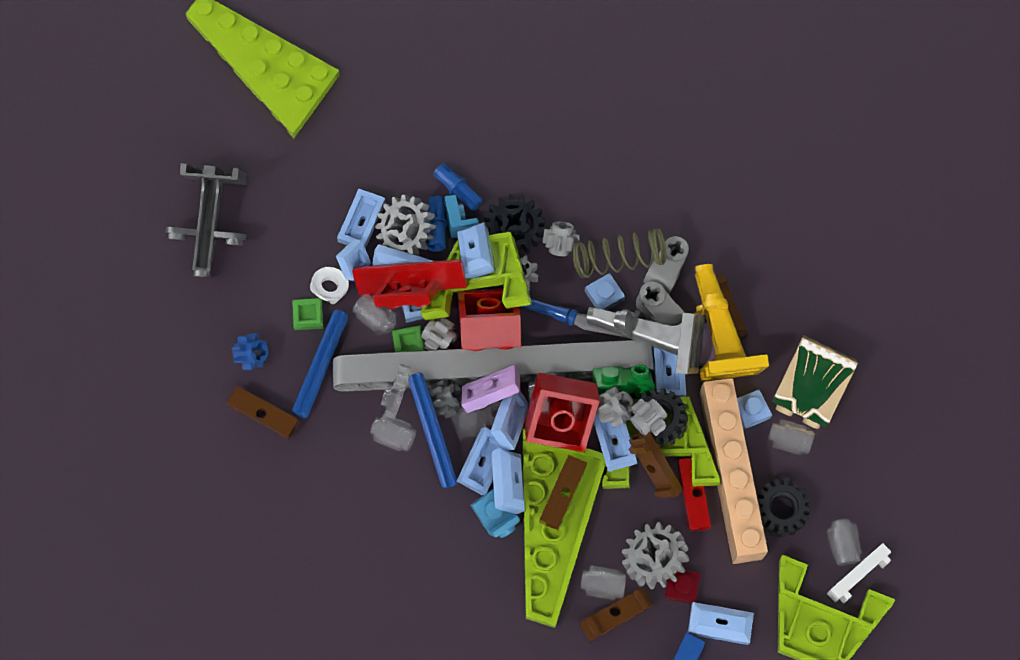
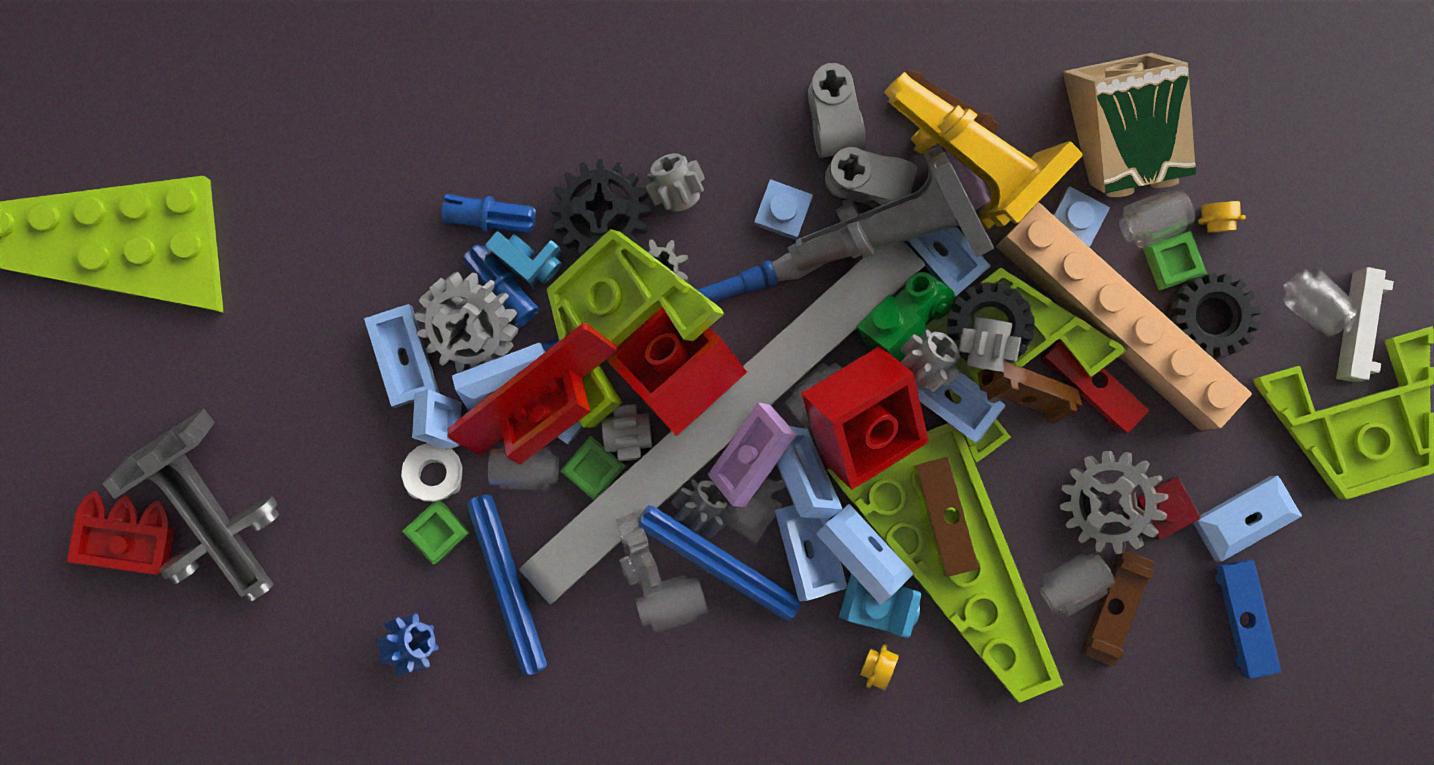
camera: 35 degrees left, 15 degrees up
(159, 201) = (120, 539): none -> red plate
(251, 405) = (466, 709): reddish brown piece -> none
(469, 546) = (879, 667): none -> yellow plate
(476, 260) = (602, 299): light blue piece -> none
(653, 245) = (811, 100): olive piece -> none
(786, 467) = (1174, 261): none -> bright green tile
(827, 463) = (1221, 216): none -> yellow plate

